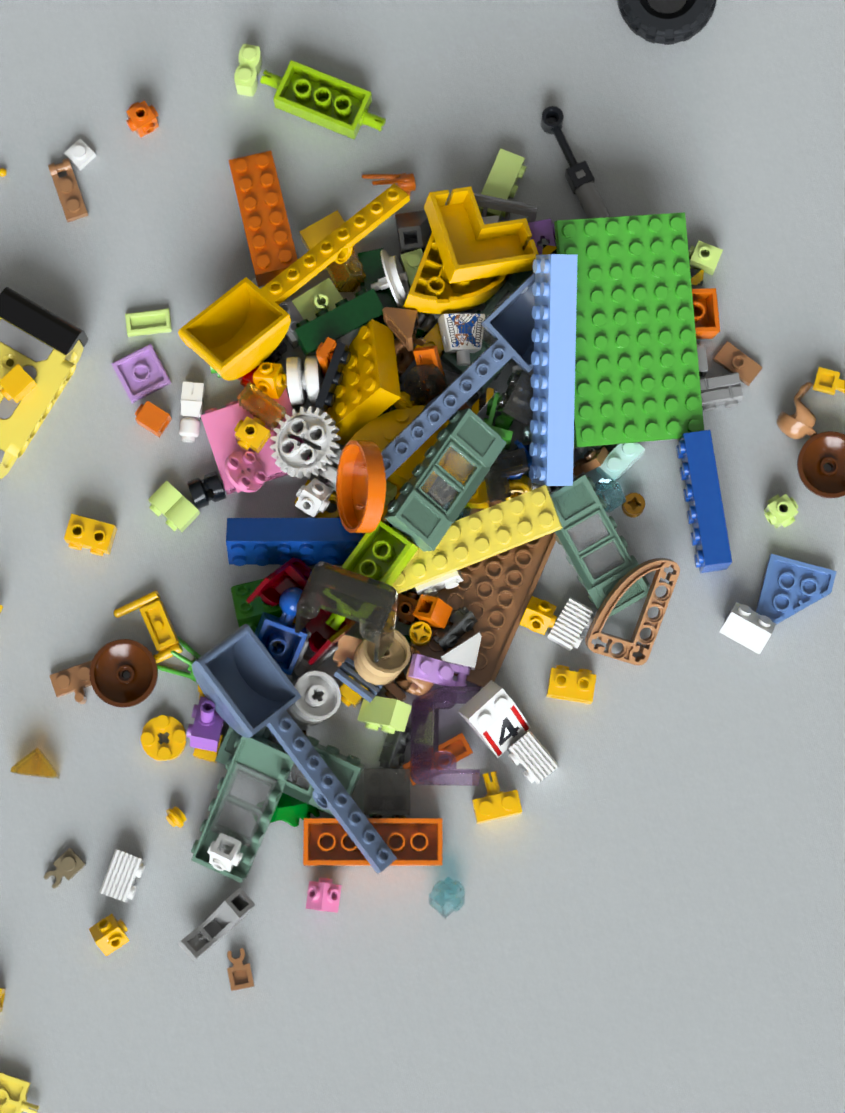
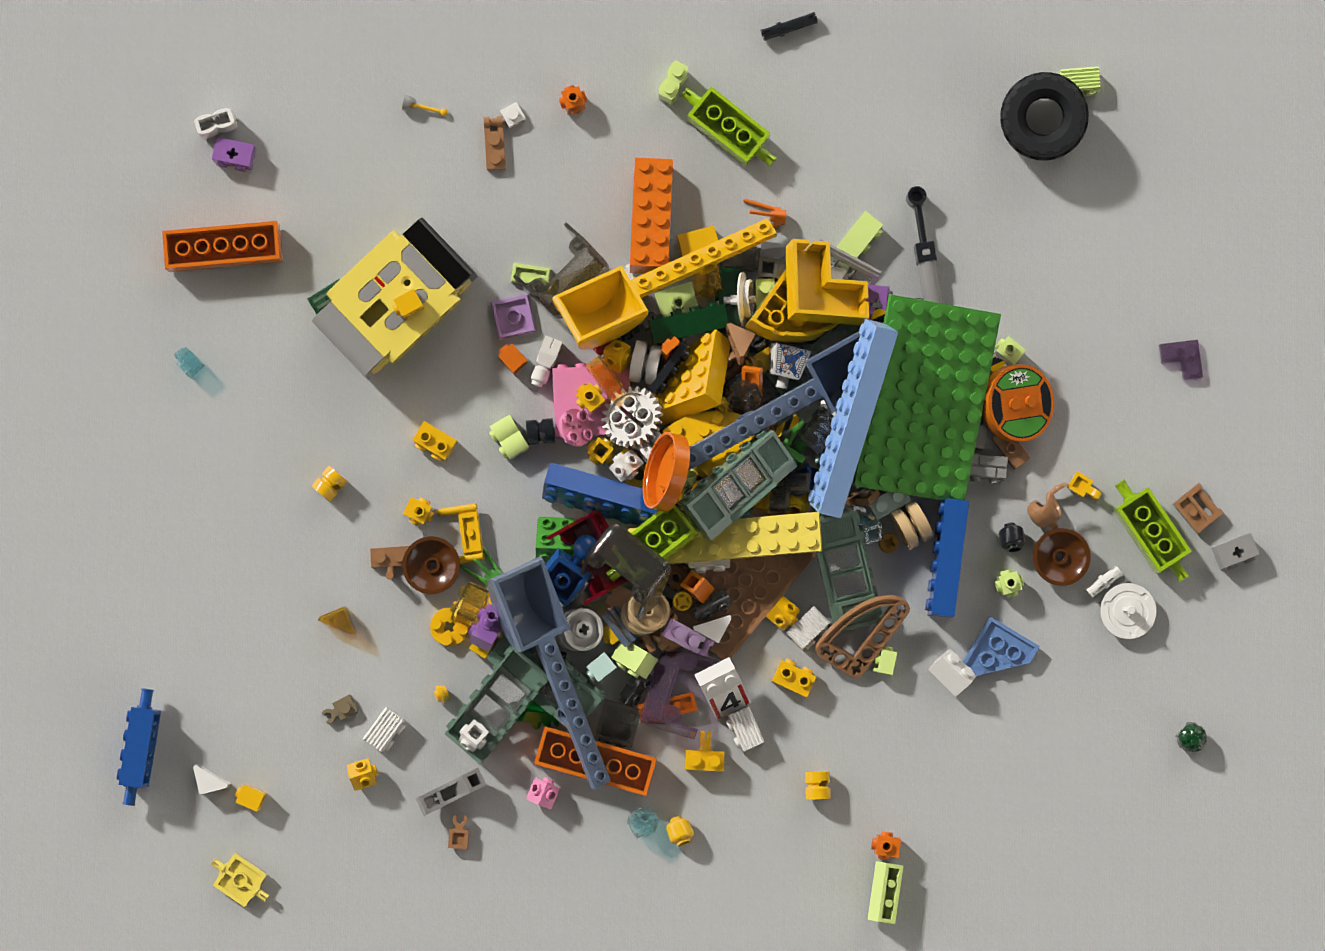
camera: 15 degrees right, 5 degrees up
(87, 612) = (412, 508): none -> yellow brick
(179, 705) = (469, 605): none -> clear yellow brick
(203, 290) = (583, 267): none -> clear smoke windscreen
(280, 485) = (603, 444): none -> yellow brick
(349, 734) = (600, 668): none -> light aqua brick
(383, 236) = (746, 260): none -> clear smoke brick
(492, 895) = (679, 831): none -> yellow head
(633, 797) = (817, 785): none -> yellow wheel
(654, 476) = (912, 525): none -> tan wheel
(669, 637) = (885, 661): none -> yellowish green brick
(731, 309) = (1018, 403): none -> brick
(739, 841) = (892, 849): none -> orange brick
(746, 897) = (885, 892): none -> yellowish green brick
(769, 460) = (1012, 537): none -> black head

